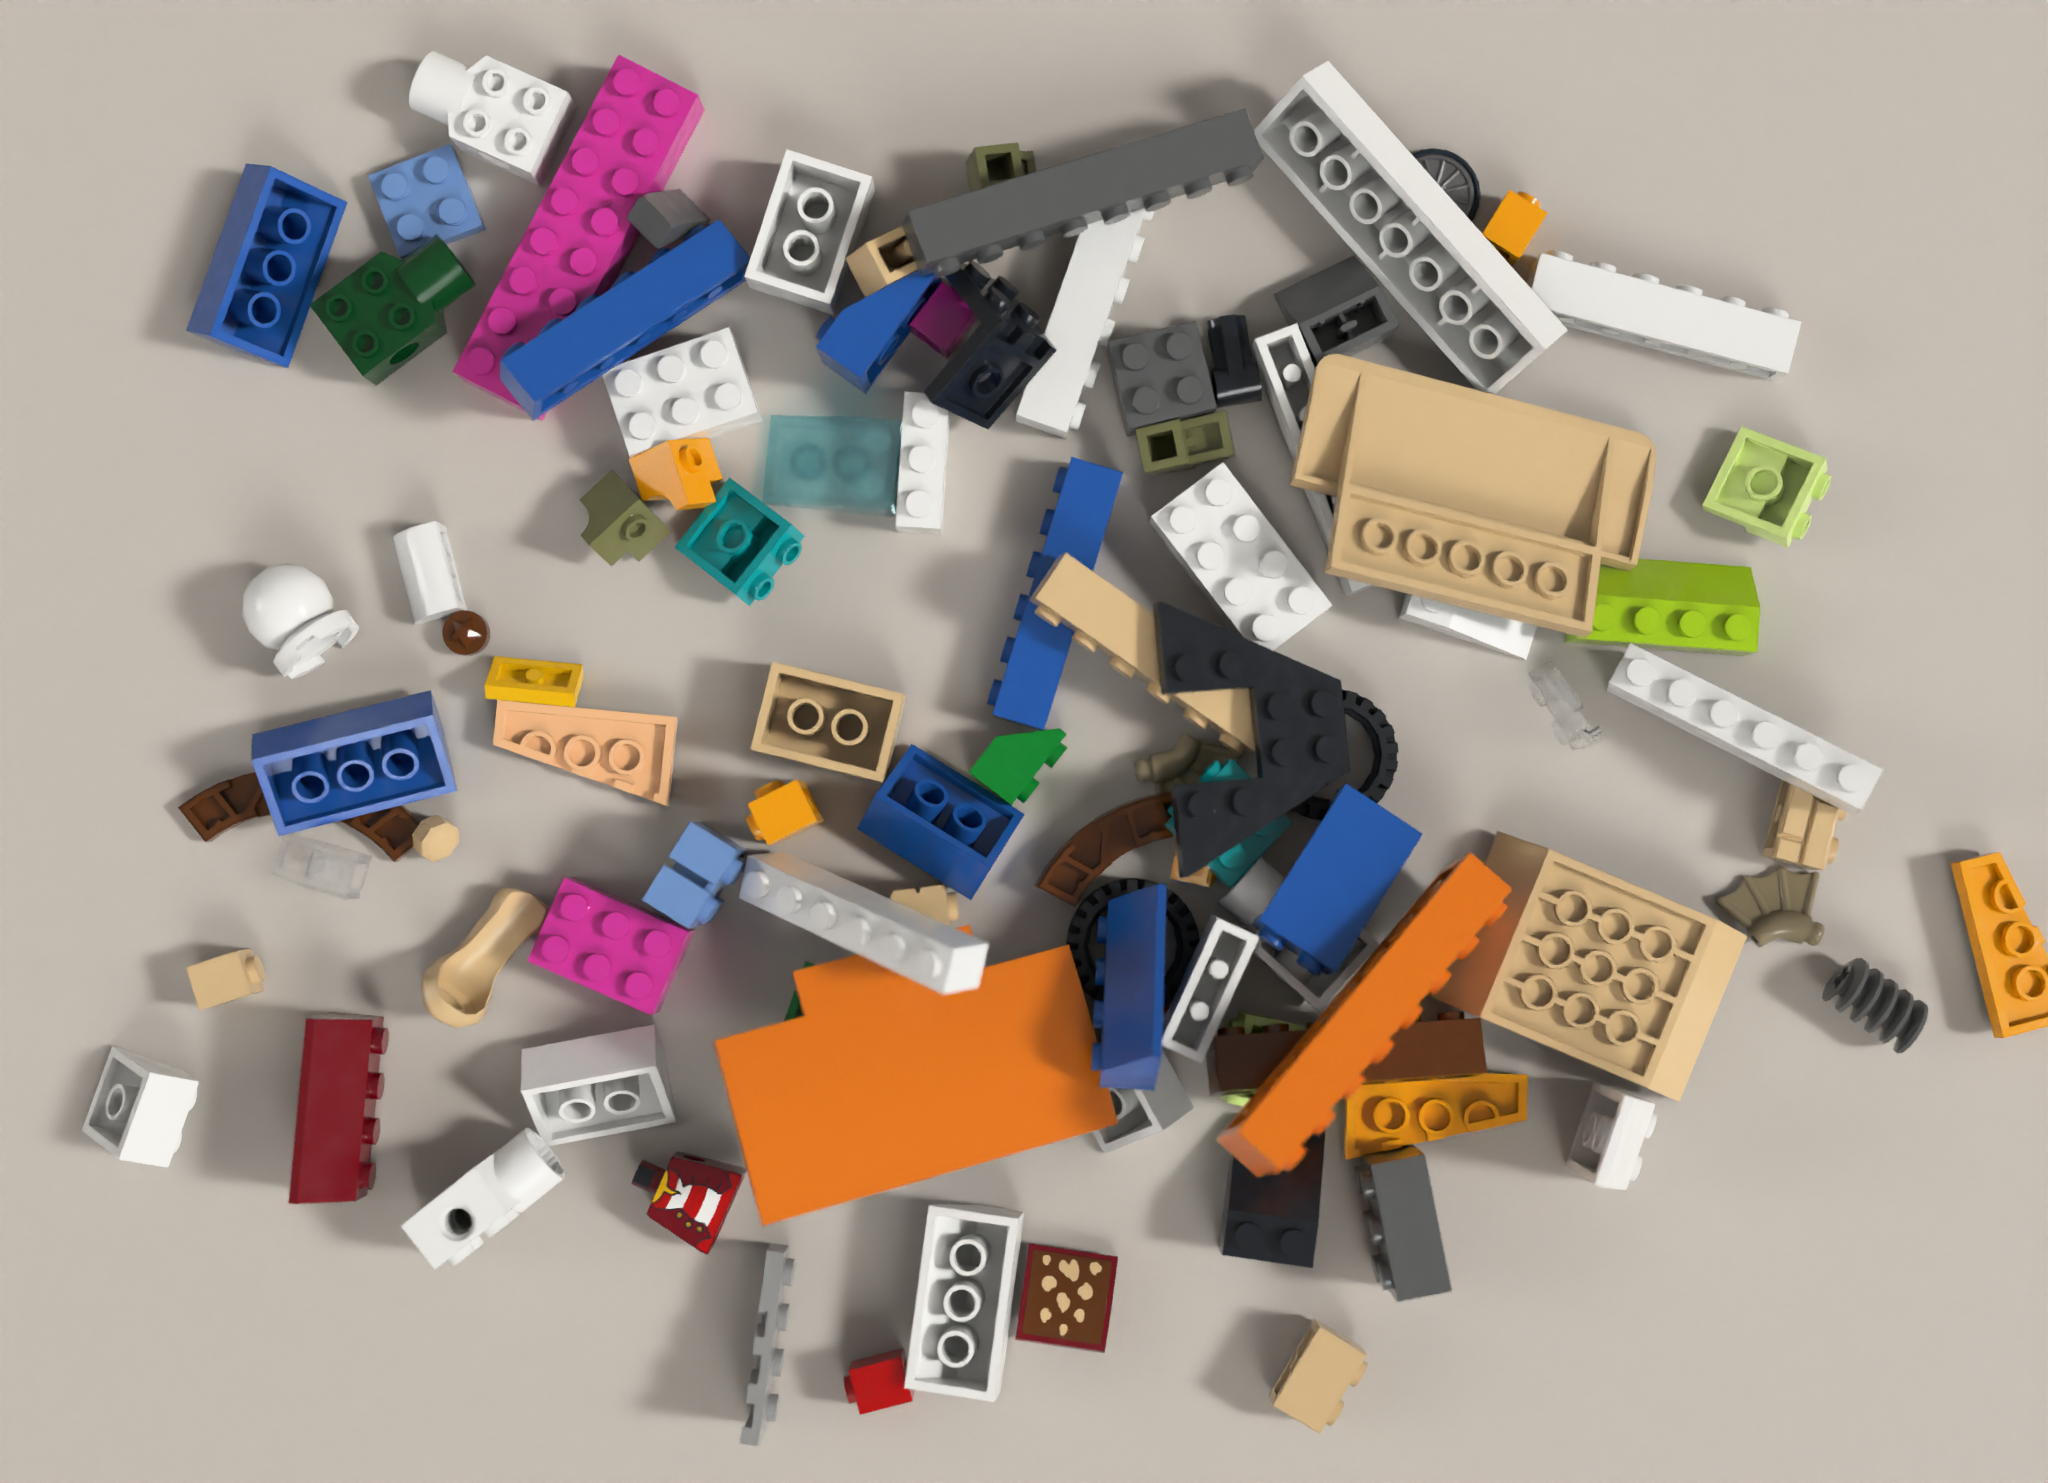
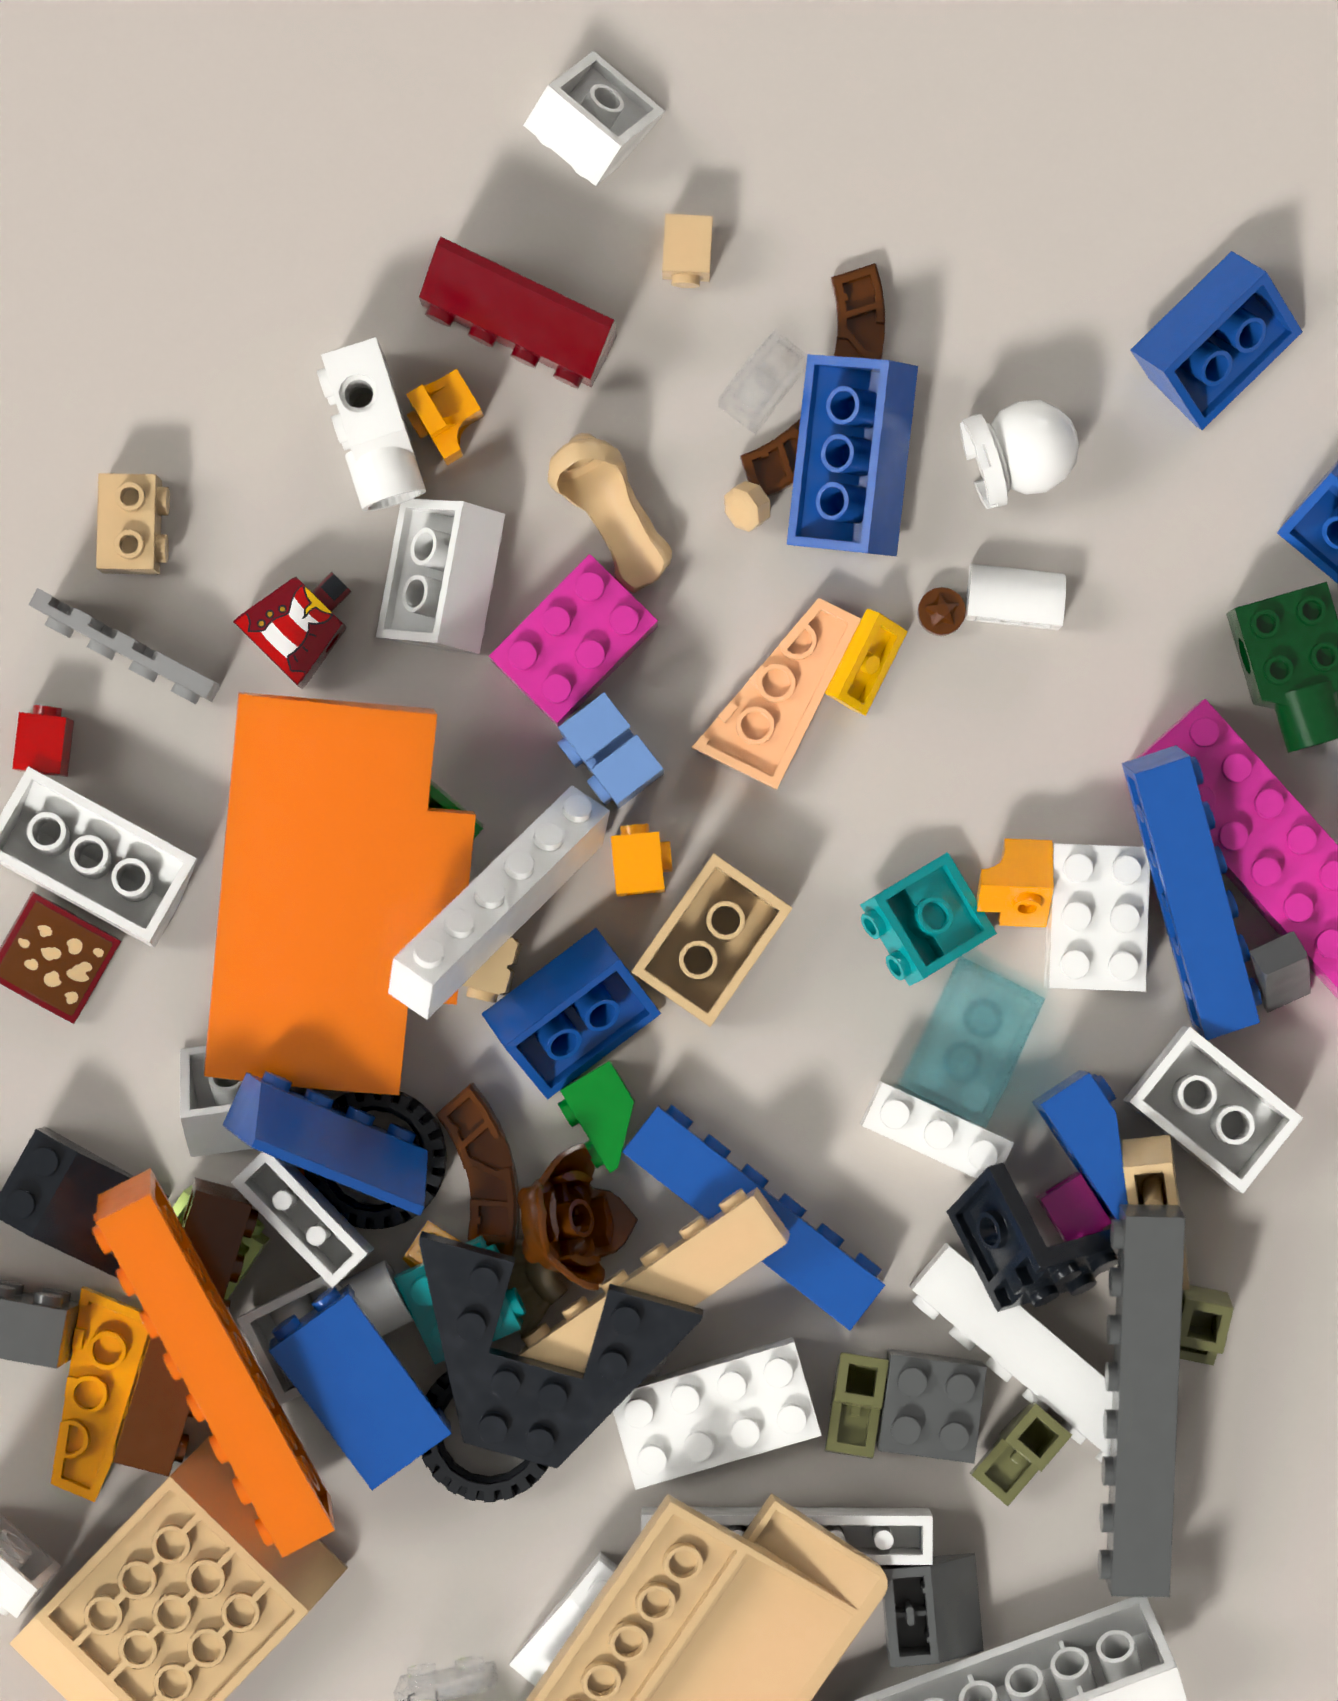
camera: 115 degrees right, 0 degrees up
(133, 482) = (1217, 339): none -> blue slope
(452, 1139) = (444, 413): none -> light orange brick
(620, 521) = (993, 808): olive brick -> none
(656, 1380) = (131, 524): none -> tan brick
(1121, 751) = (571, 1222): none -> reddish brown brick
(1168, 286) = (1020, 1452): none -> olive brick
(1234, 373) = (909, 1482): black piece -> none

